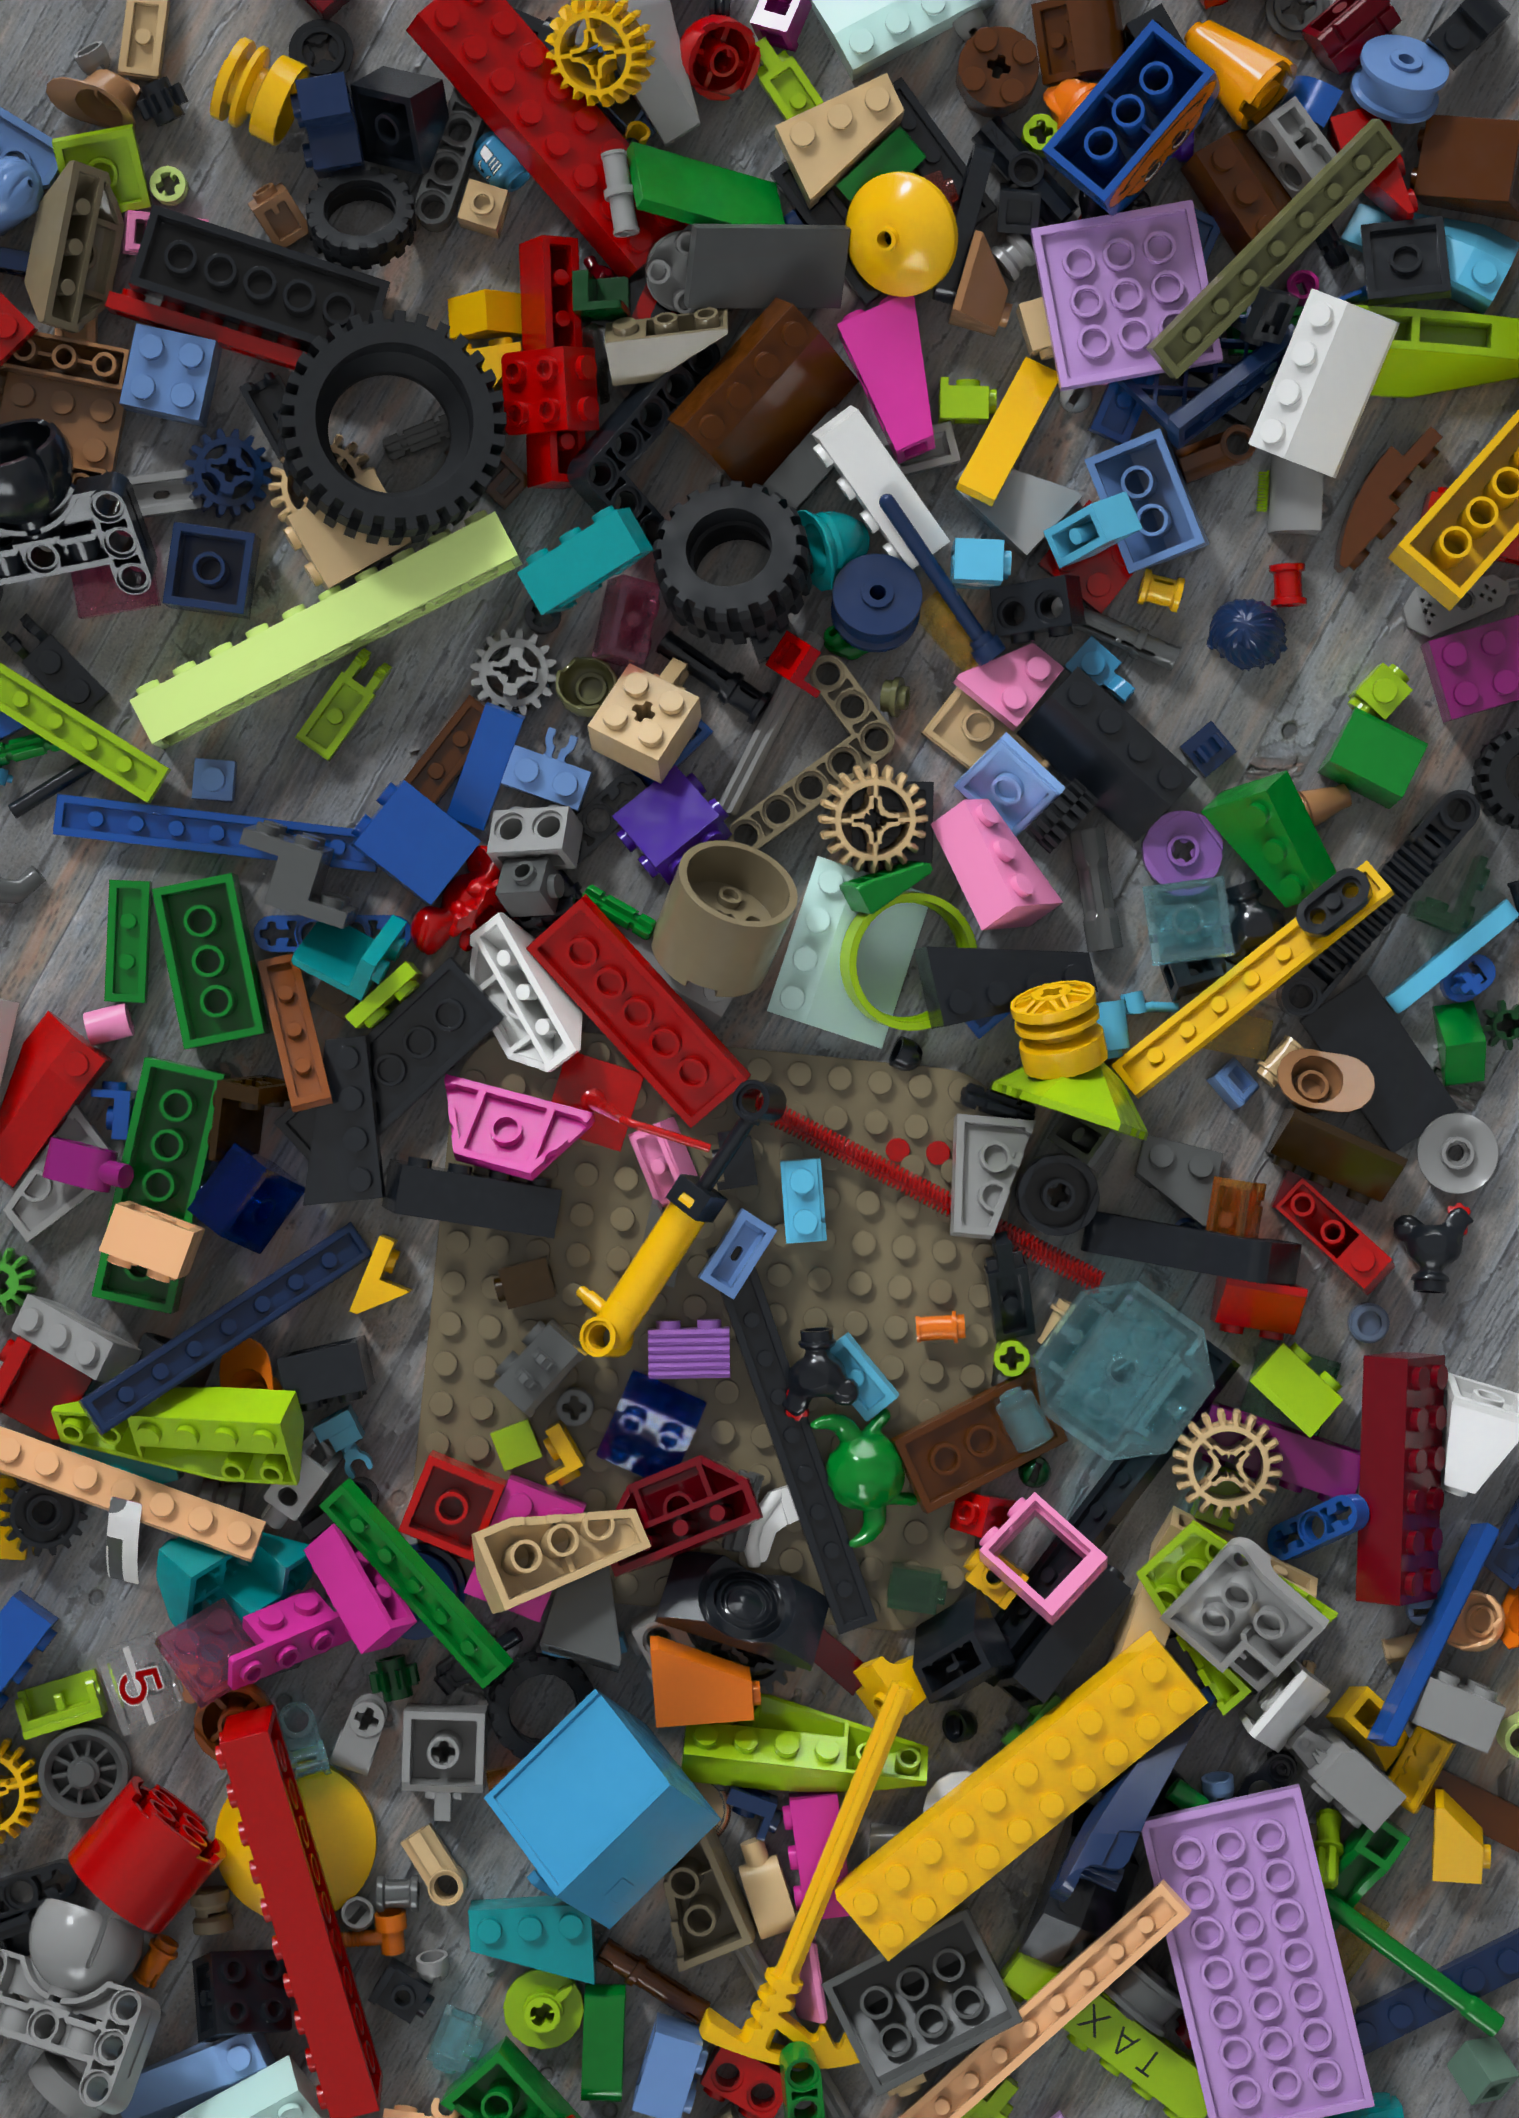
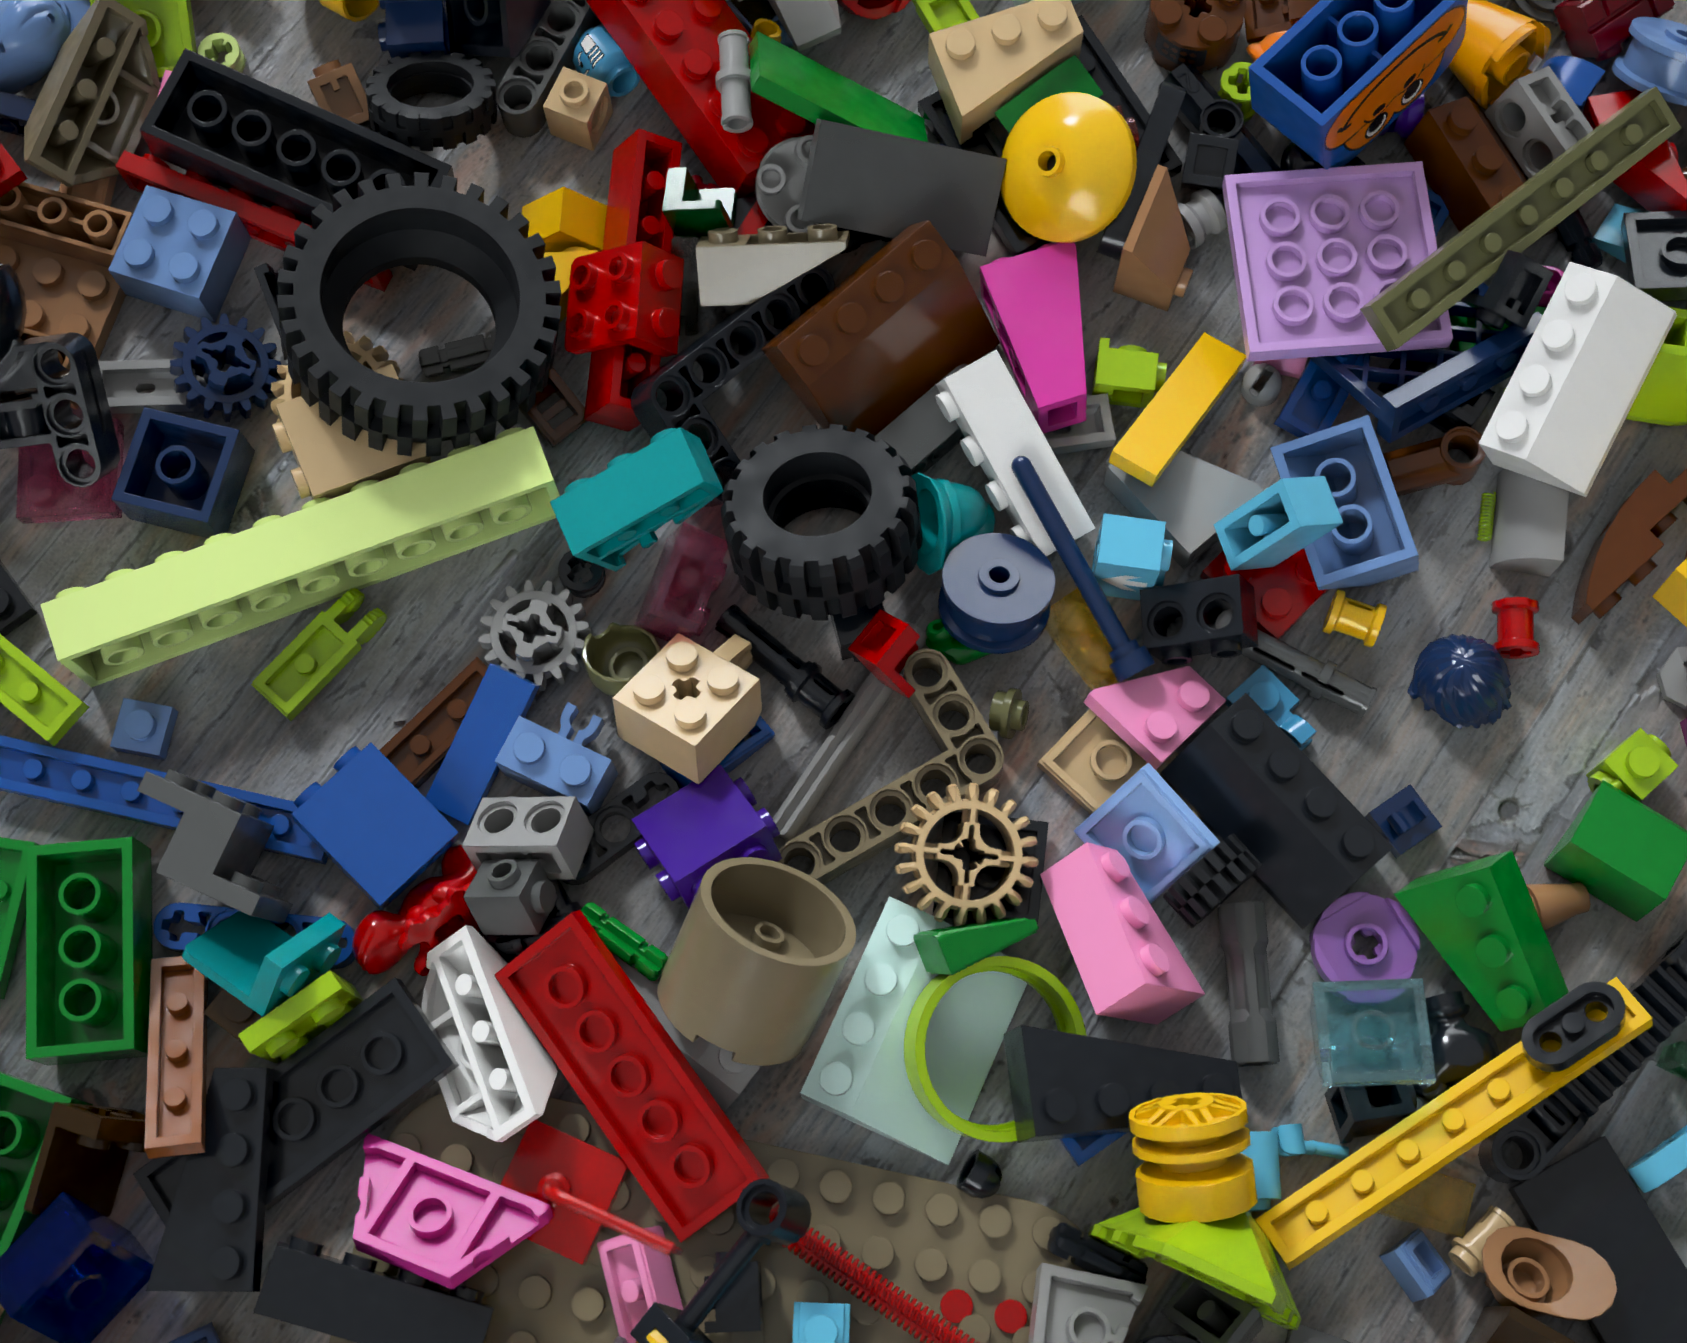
camera: 10 degrees right, 15 degrees down
(1035, 328) = (1219, 300): tan brick -> none

